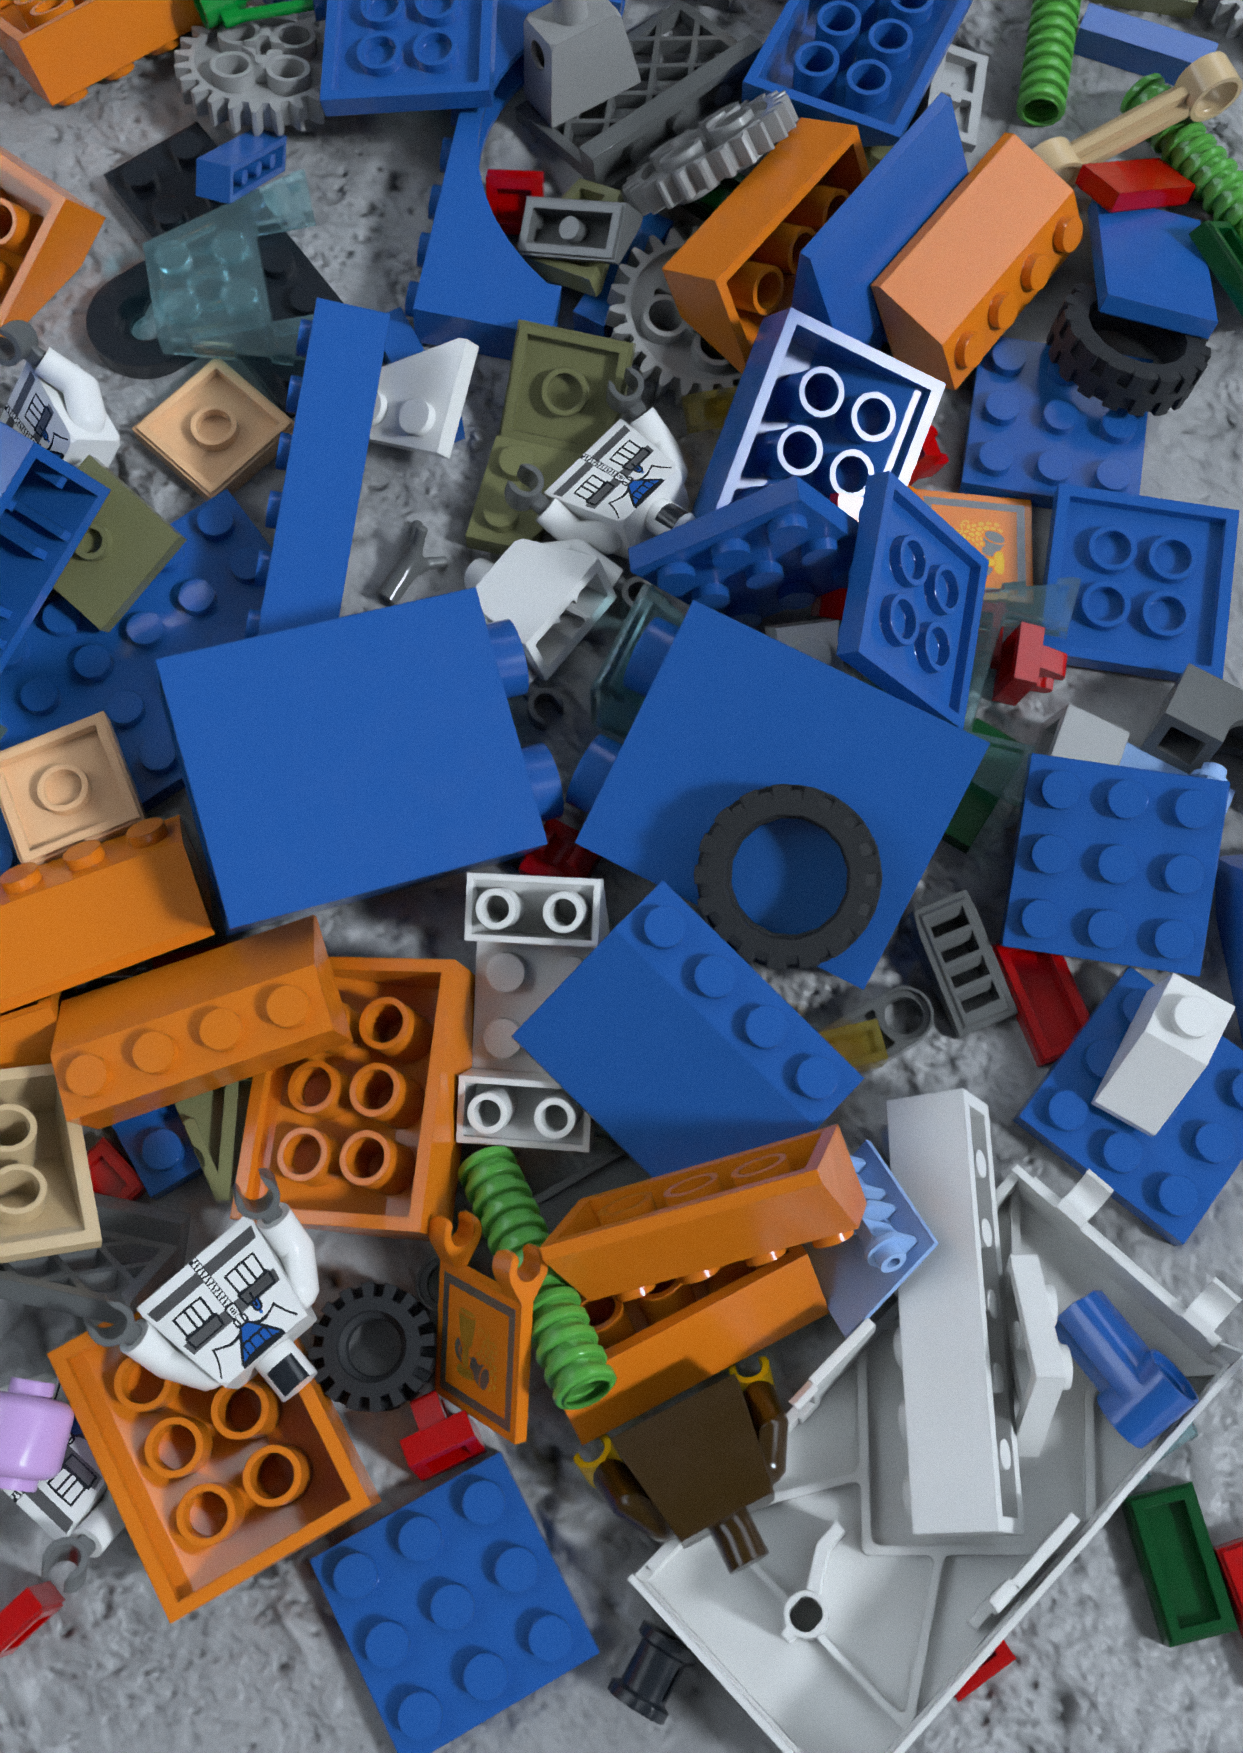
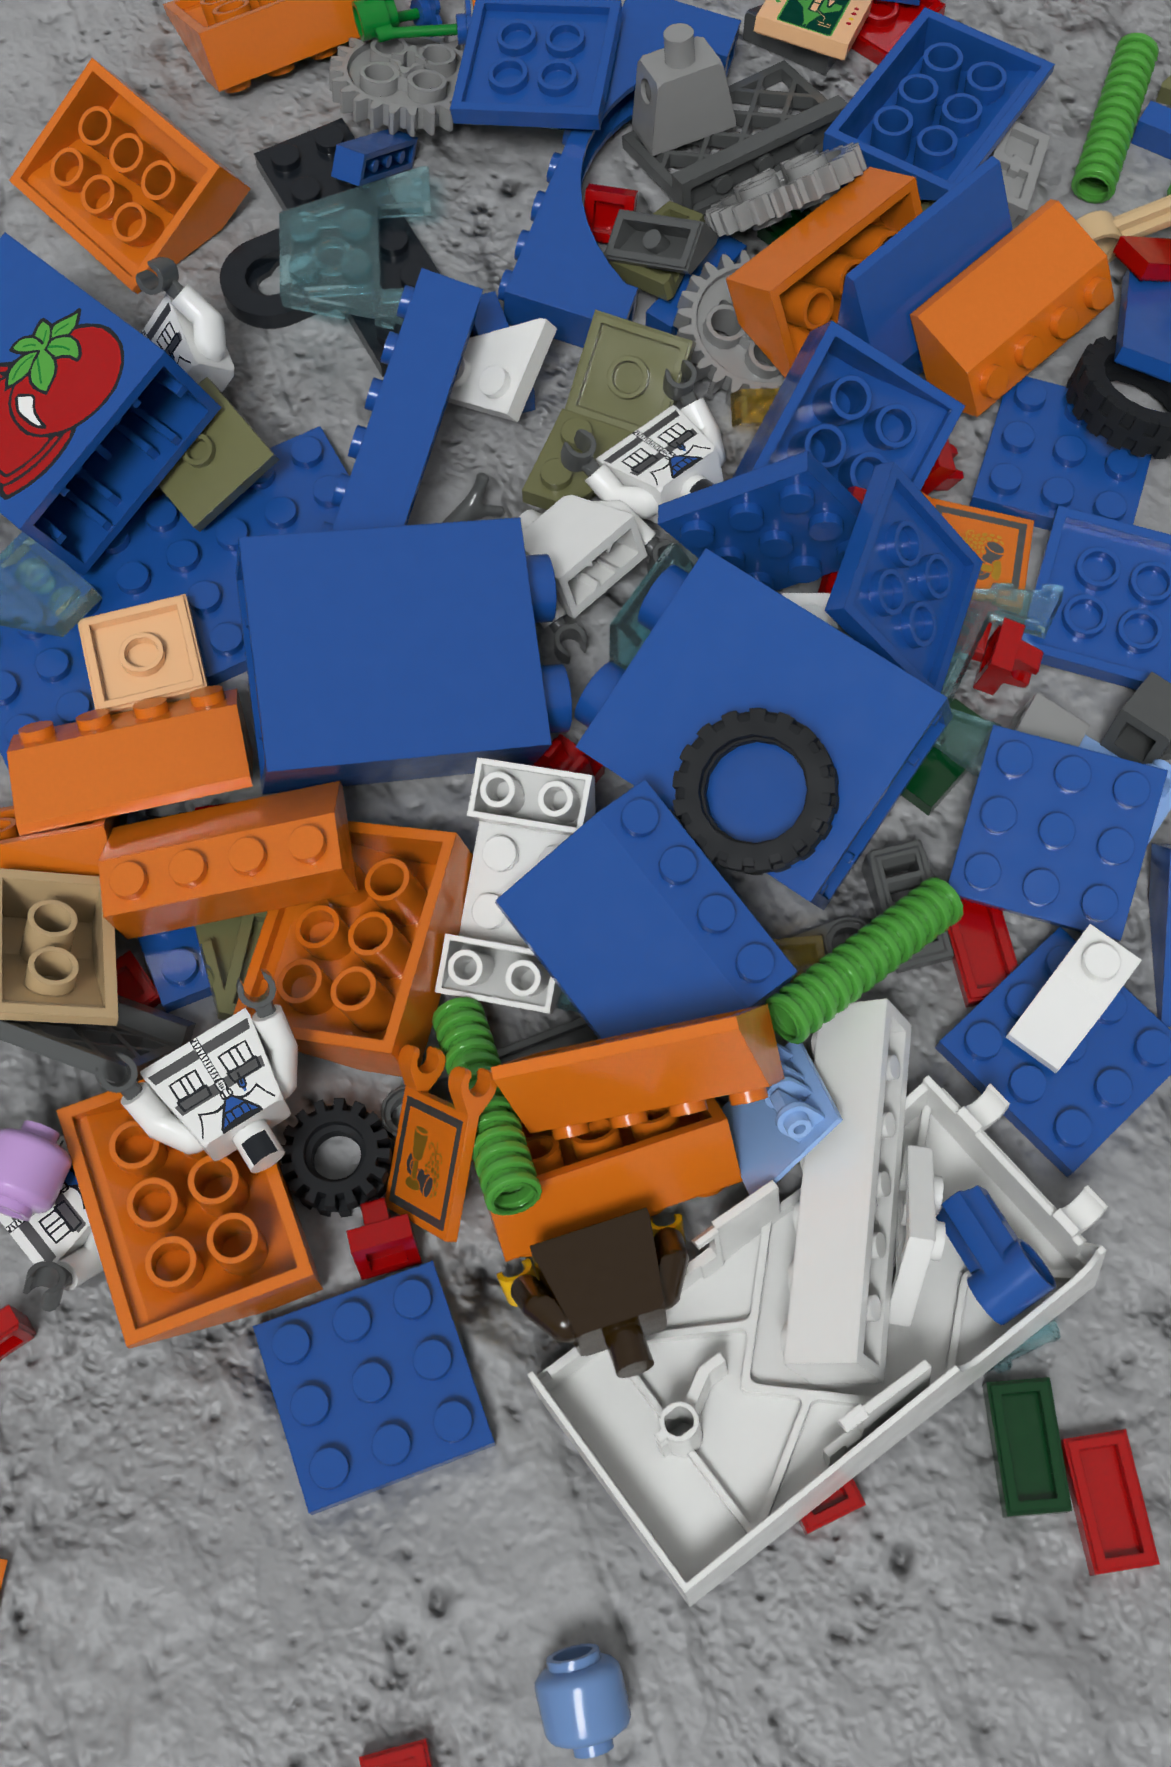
camera: 10 degrees right, 5 degrees down
(214, 430) = (316, 377): light nougat tile -> none
(652, 1672) = (539, 1464): black bush -> none
(929, 1044) = (864, 960): none -> bright green piece

